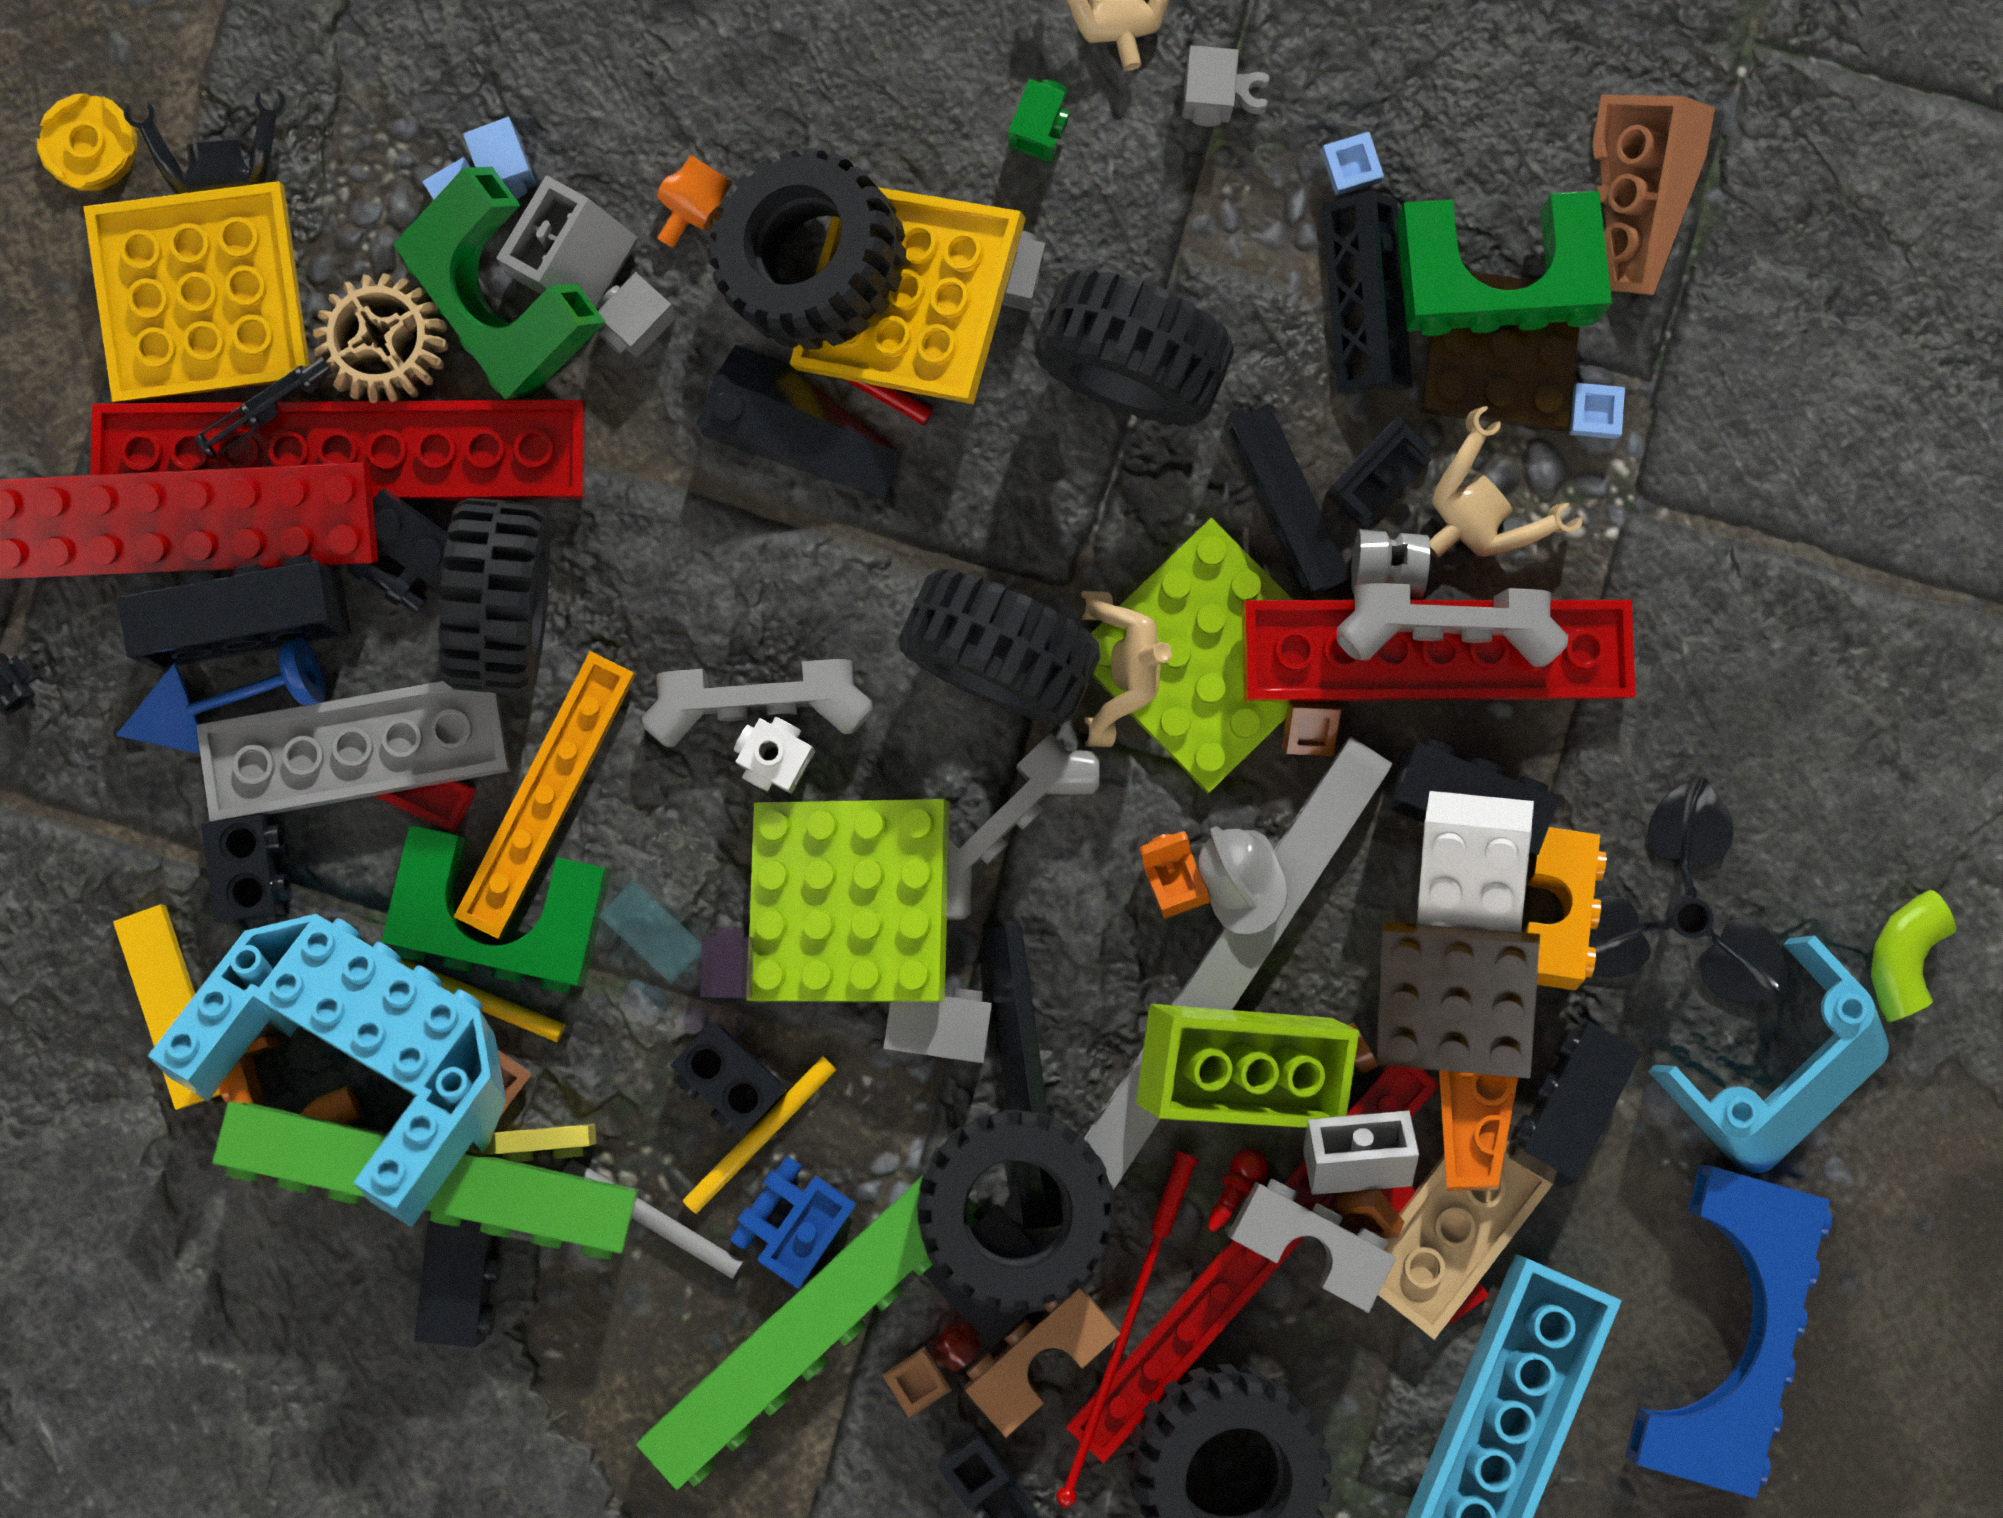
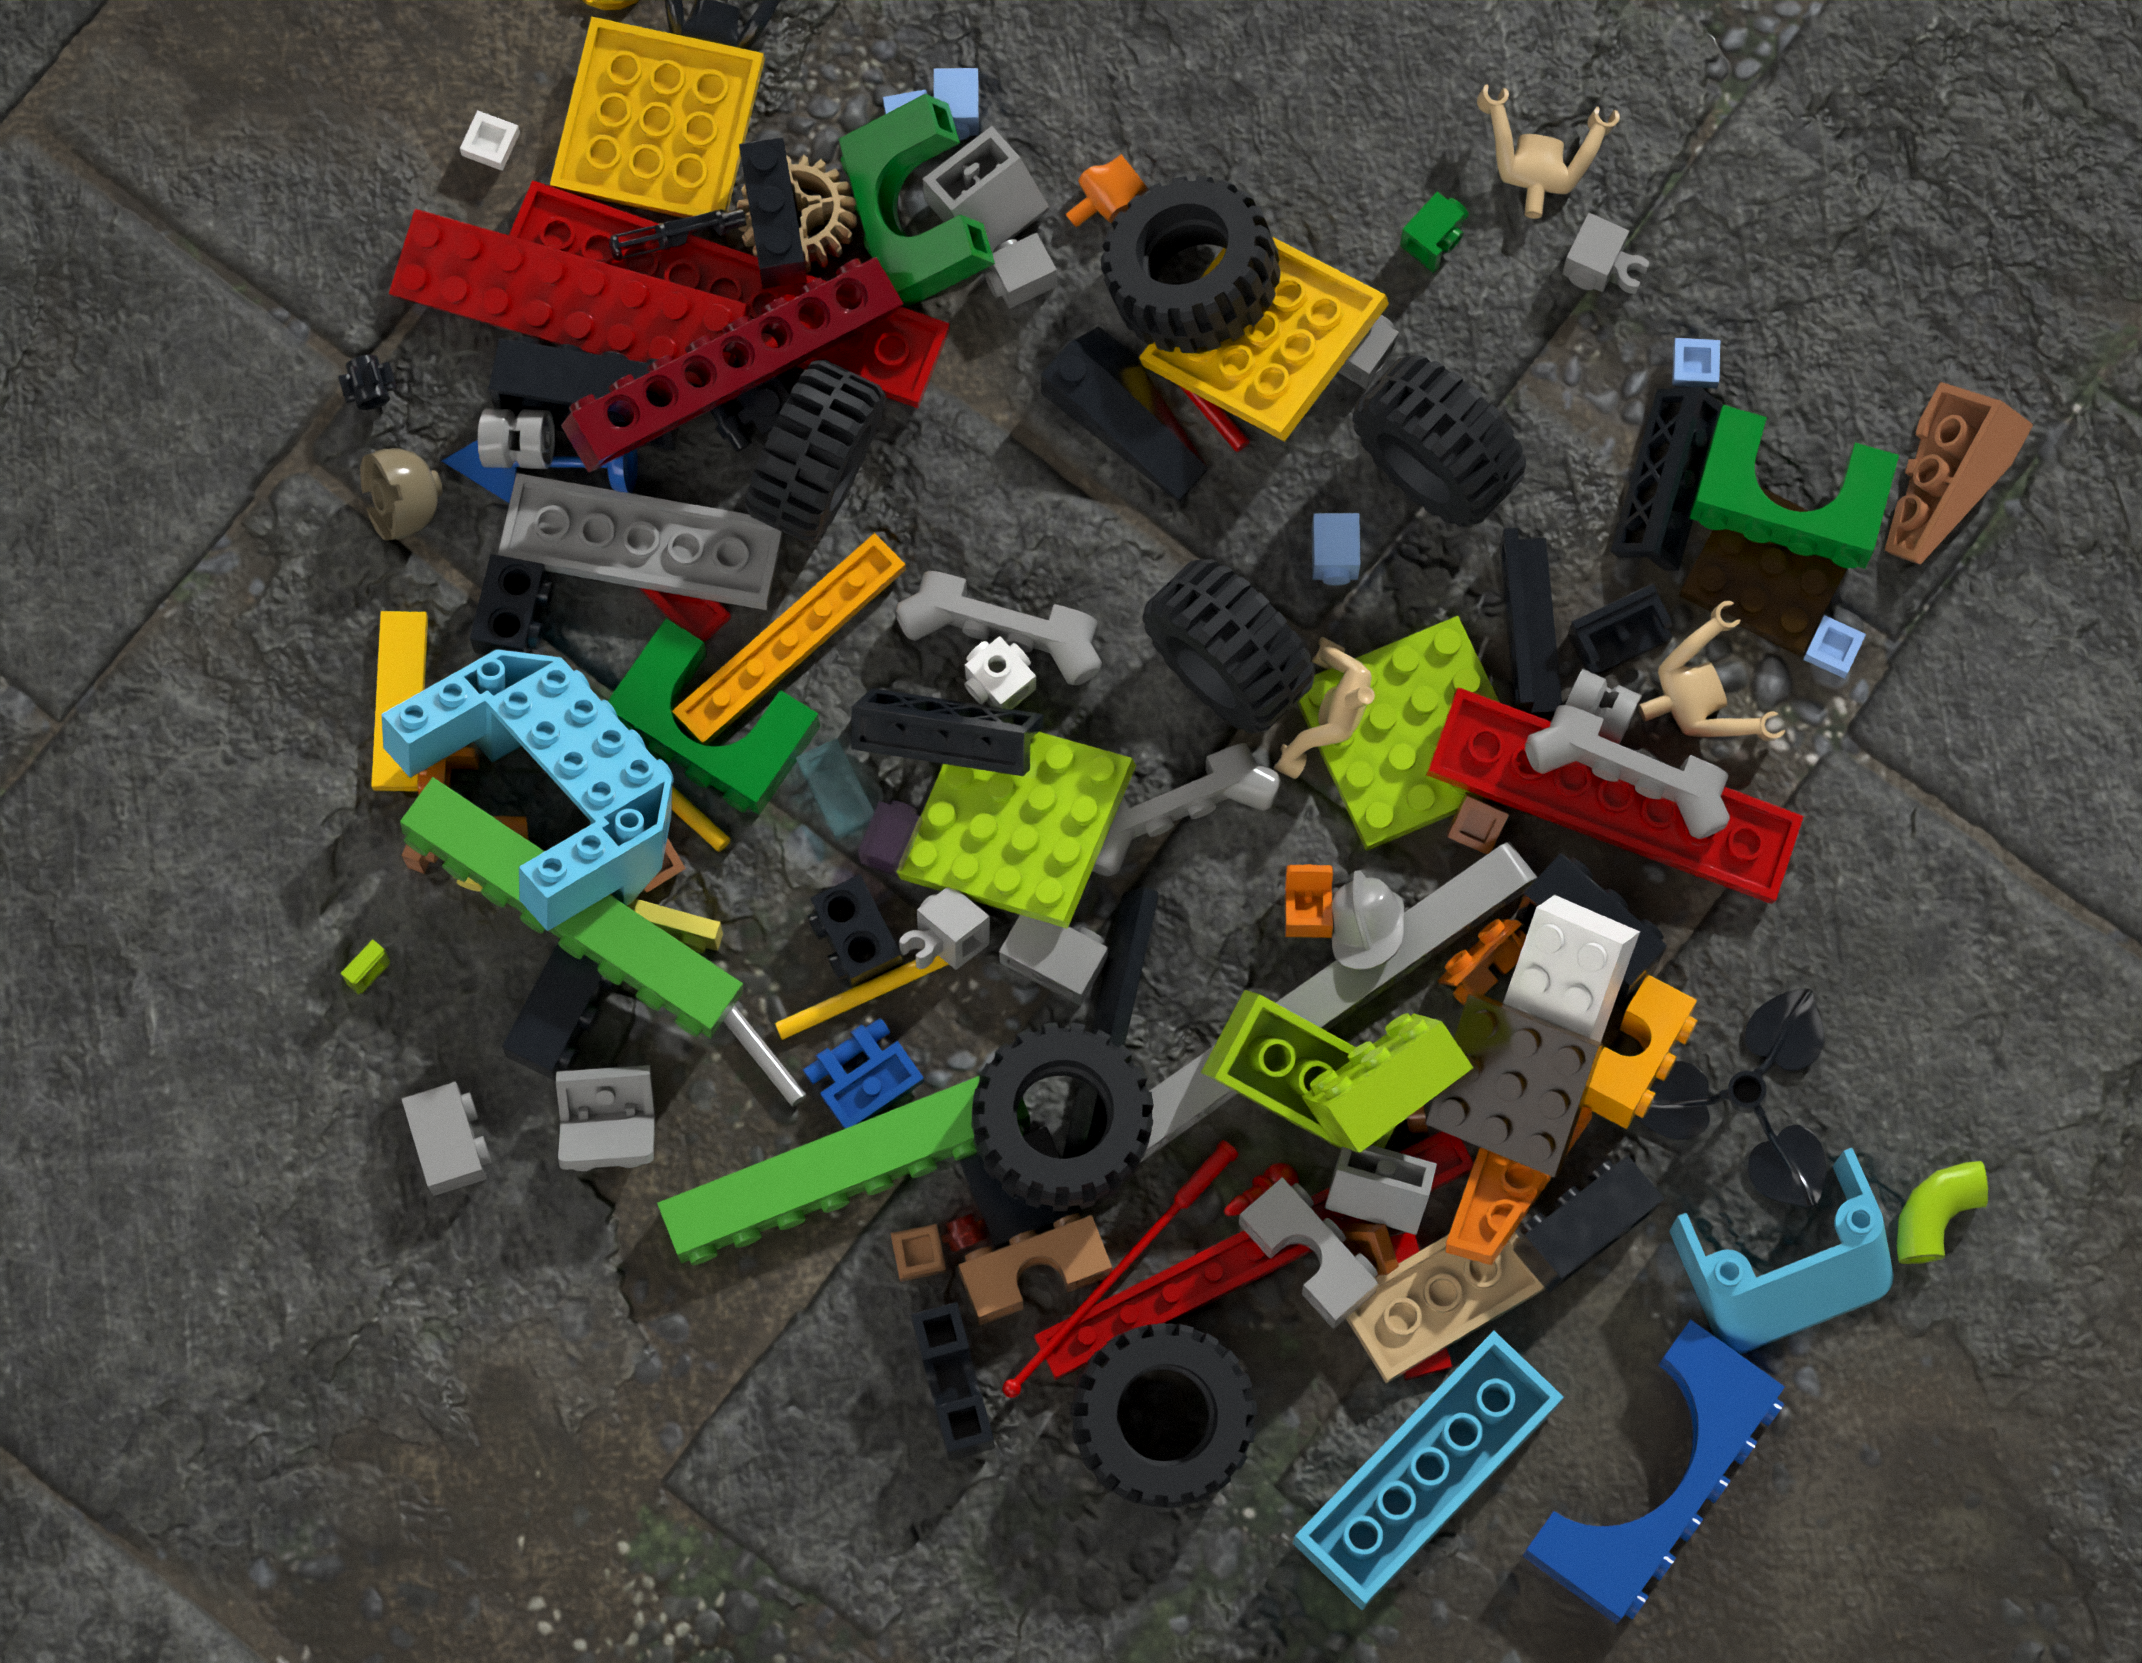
camera: 25 degrees right, 10 degrees down
(32, 375) = (489, 140): none -> white plate
(83, 788) = (401, 491): none -> dark tan cylinder
(174, 693) = (514, 438): none -> light grey wheel
(243, 1304) = (366, 967): none -> lime tile
(265, 678) = (602, 442): none -> dark red brick
(353, 352) = (773, 213): none -> black brick
(394, 1451) = (445, 1138): none -> light grey brick
(551, 1376) = (606, 1117): none -> light grey bracket
(739, 842) = (944, 731): none -> black fence
(821, 1041) = (948, 928): none -> light grey brick
(1063, 492) = (1335, 547): none -> light blue brick
(1337, 1058) = (1386, 1081): none -> lime brick
(1375, 844) = (1470, 969): none -> orange hinge

